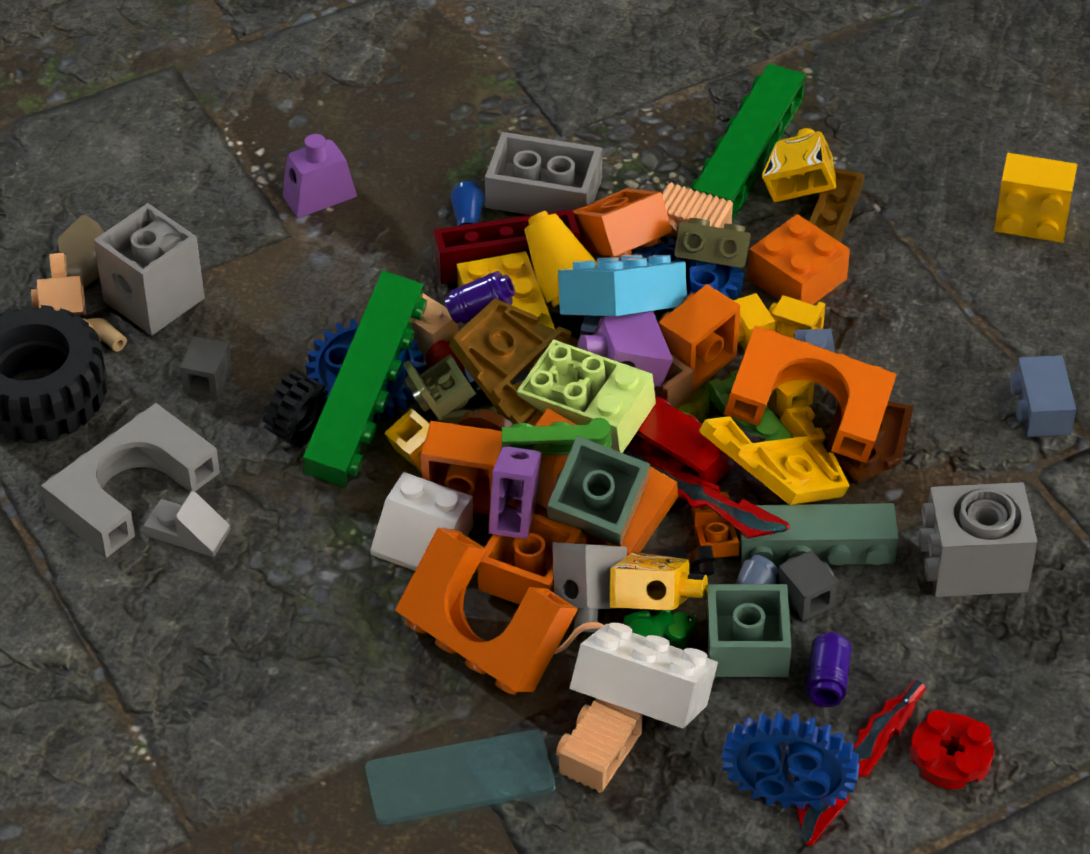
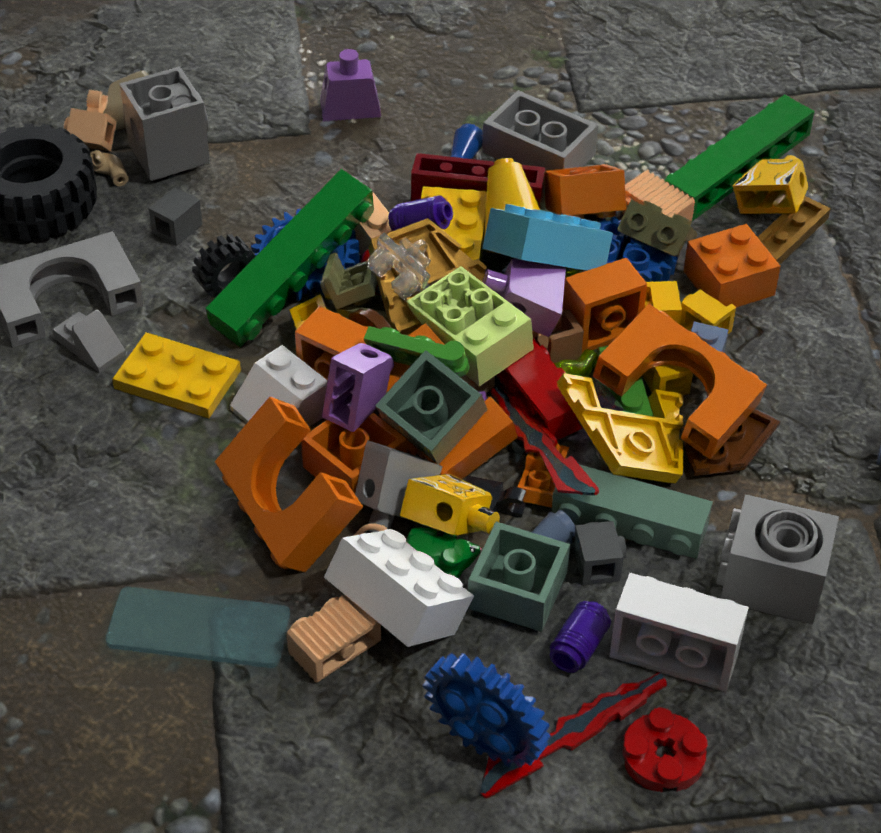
camera: 20 degrees right, 0 degrees up
(298, 535) = (177, 375): none -> yellow plate
(501, 349) = (404, 258): none -> clear hips
(921, 636) = (678, 631): none -> white brick

